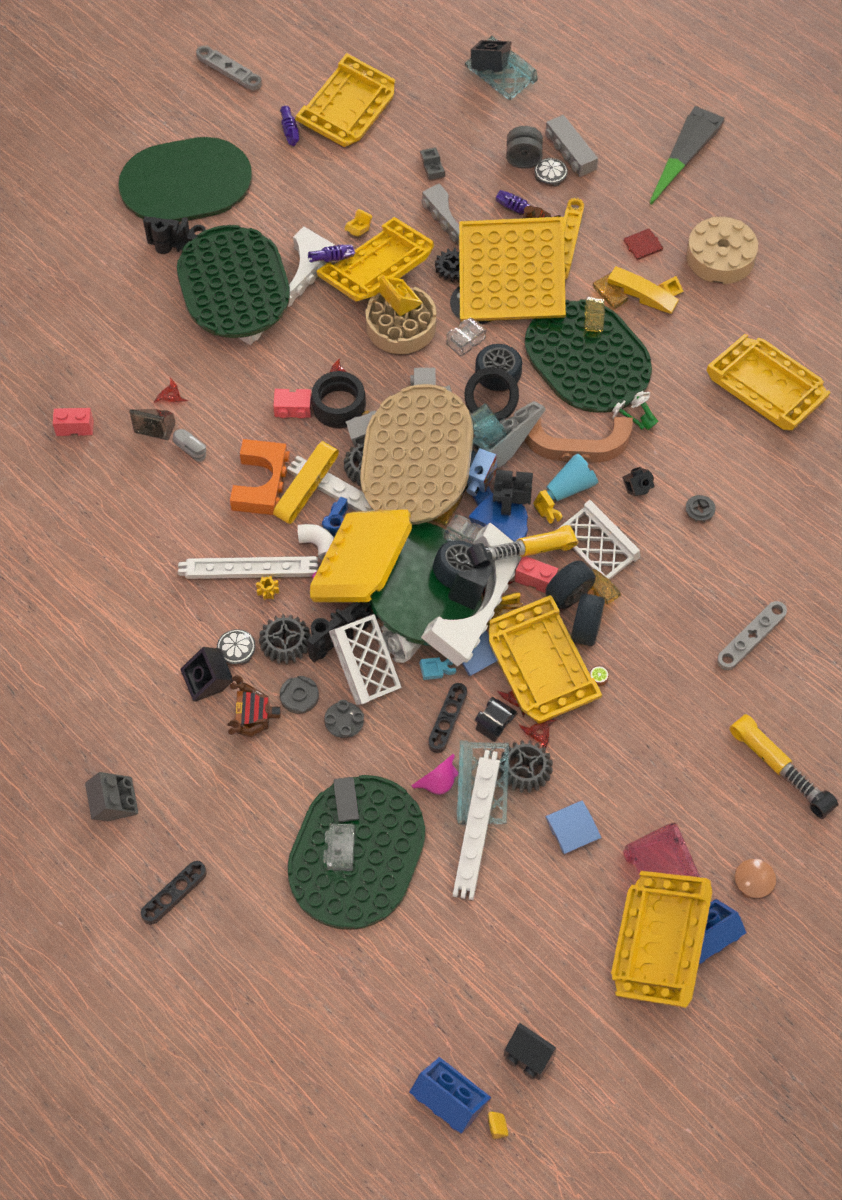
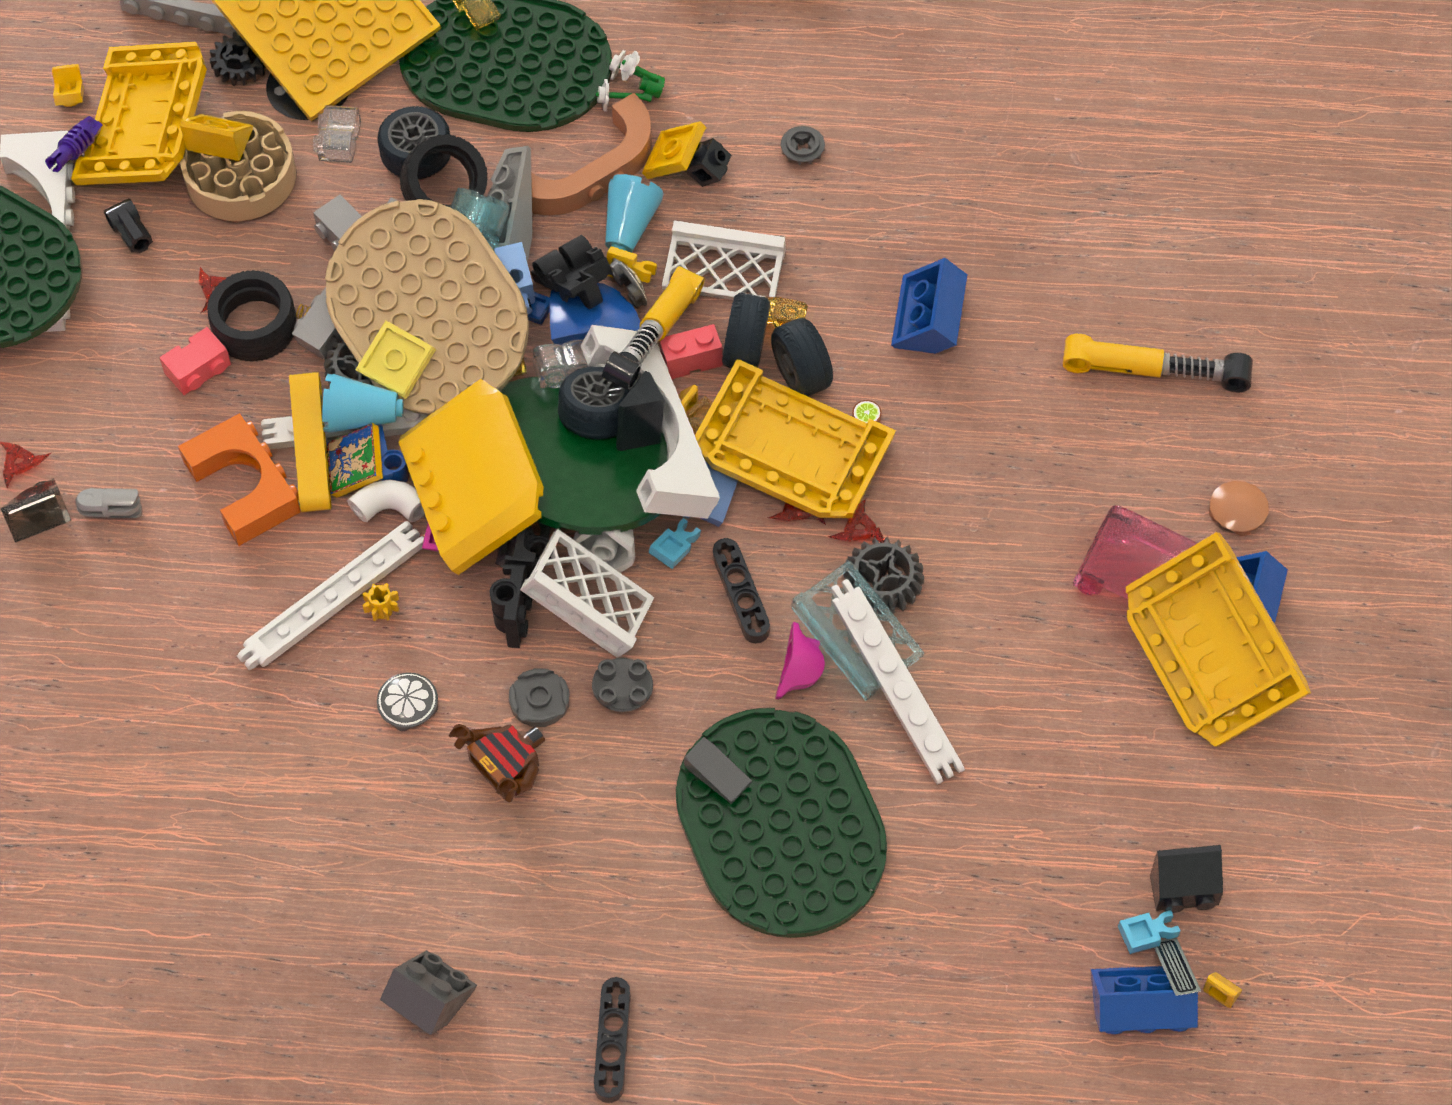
camera: 40 degrees left, 0 degrees up
(206, 673) = (403, 758): black slope -> none
(270, 637) = (461, 661): dark grey gear -> none
(319, 507) = (354, 460): none -> tile
(324, 310) = (127, 222): none -> black piece
(340, 479) = (357, 404): none -> medium azure cone
(340, 847) = (764, 827): clear brick -> none
(379, 470) = (395, 359): none -> light yellow tile
(479, 1092) = (1177, 967): none -> sticker
(483, 1060) = (1144, 933): none -> medium azure plate
(494, 718) = (798, 551): black cylinder -> none
(537, 519) = (624, 275): none -> dark grey dish
(573, 827) = (997, 602): medium blue slope -> none
(626, 462) = (674, 150): none -> yellow tile
(685, 644) = (930, 308): none -> blue slope
(742, 644) = (990, 263): light grey piece -> none

